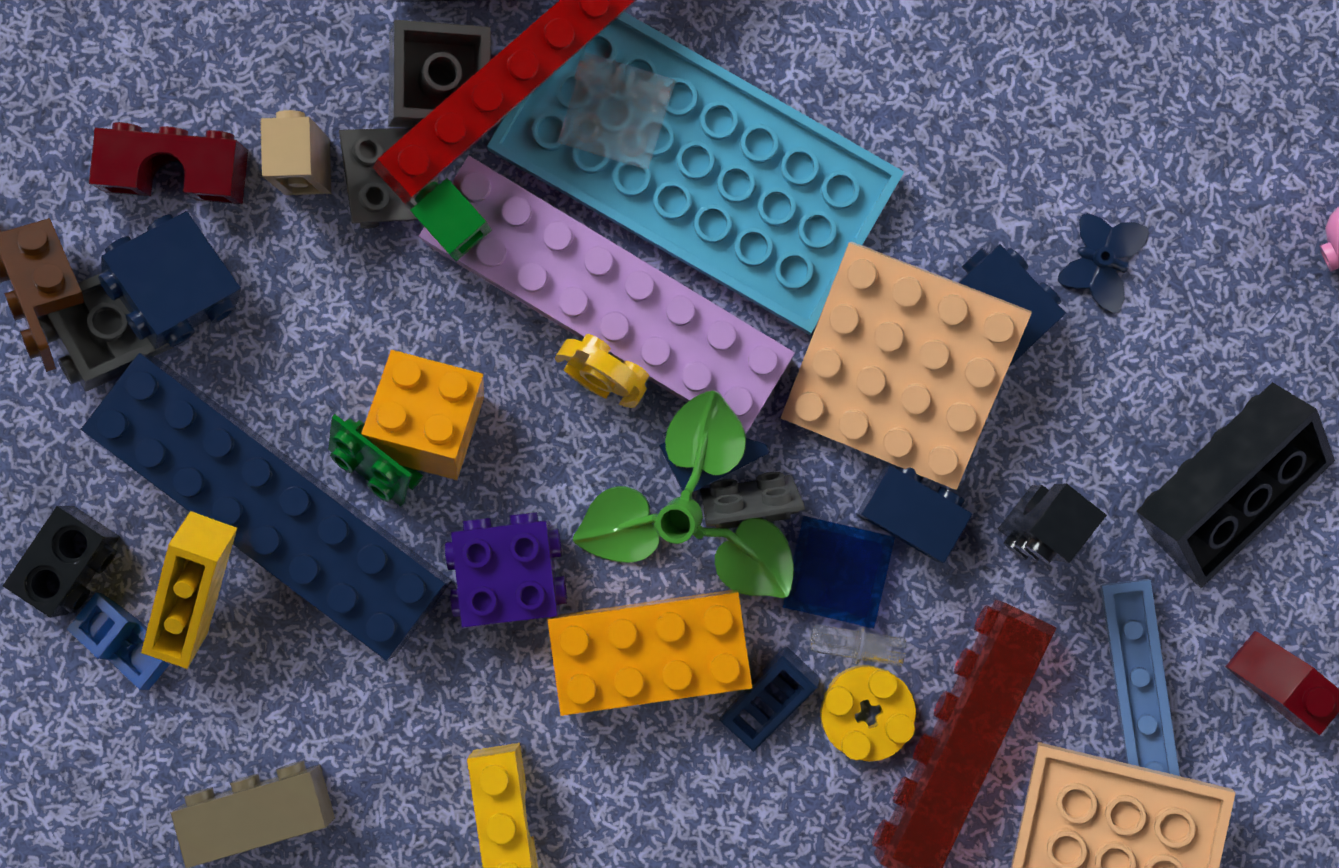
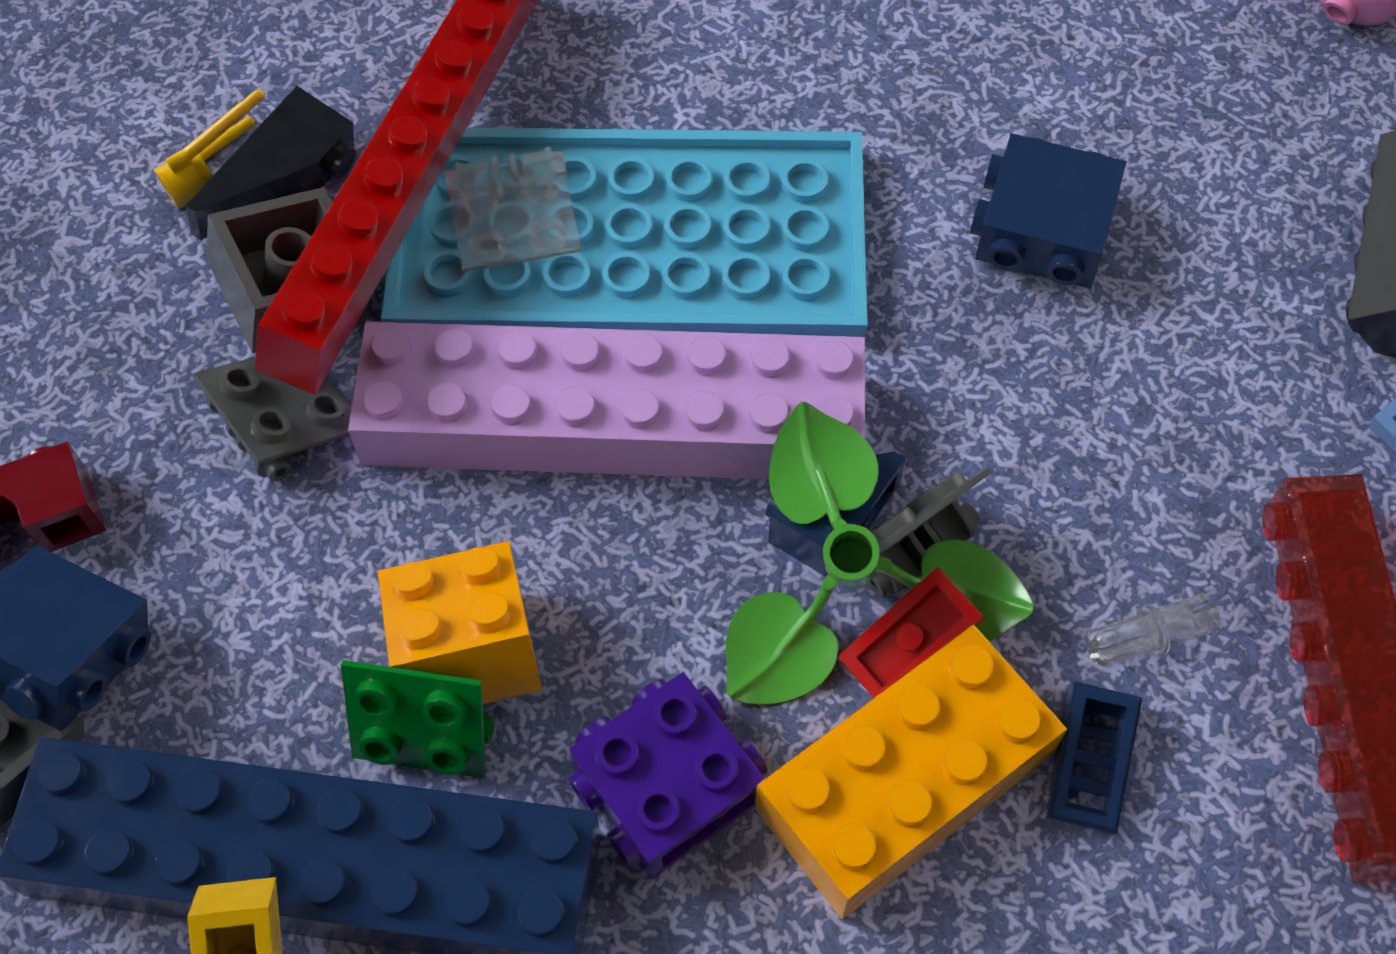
camera: 25 degrees left, 25 degrees down
(295, 154) = (151, 421): tan brick -> none
(450, 218) = (379, 374): green brick -> none
(601, 372) = (677, 455): yellow plate -> none
(702, 571) = (910, 632): none -> red plate
(839, 571) = (1072, 564): clear blue plate -> none
(843, 701) = (1241, 677): yellow plate -> none
(905, 364) = (995, 297): light nougat plate -> none
(915, 513) = (1112, 450): dark blue brick -> none
(1050, 523) = (1283, 347): black arch -> none
(1100, 259) = (1121, 124): dark blue piece -> none

